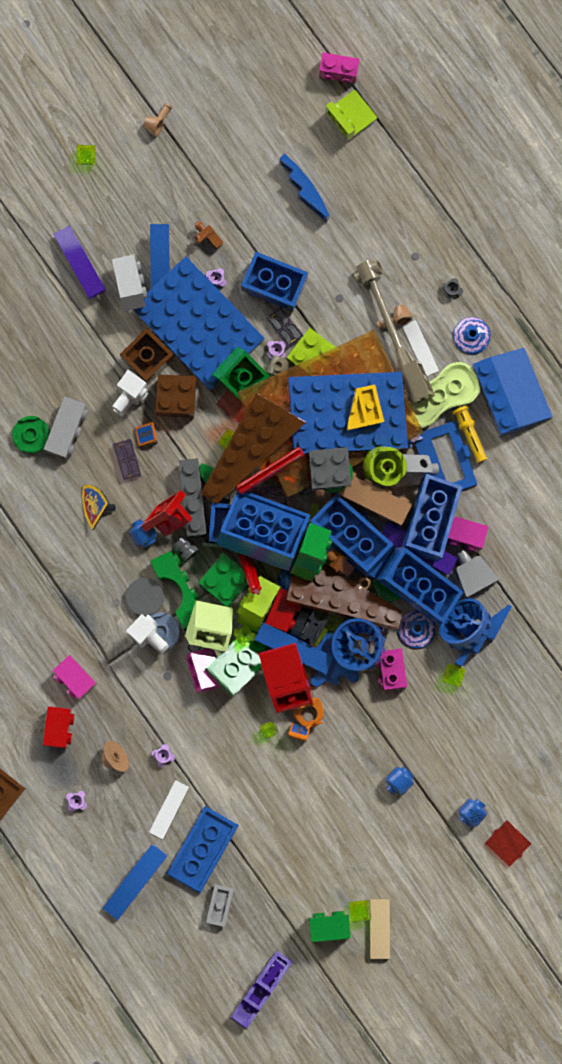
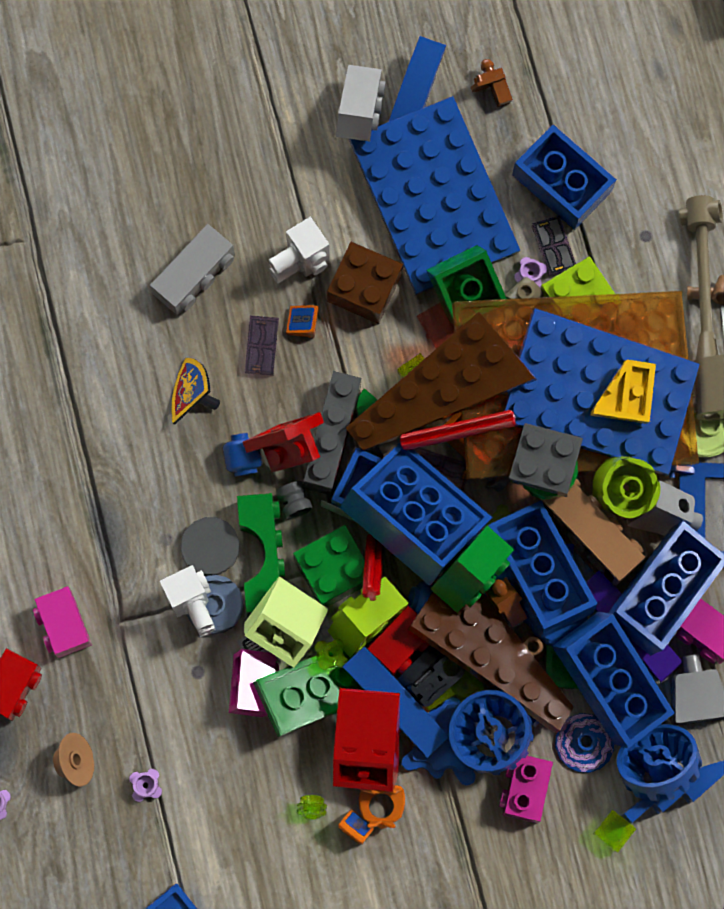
camera: 20 degrees right, 5 degrees down
(30, 434) = (140, 260): green tile -> none
(79, 262) = (302, 54): dark purple slope -> none
(147, 356) = (345, 212): reddish brown brick -> none
(168, 809) = (122, 868): white sticker -> none
(219, 274) = (489, 140): lavender plate -> none
(308, 193) = (655, 76): blue slope -> none

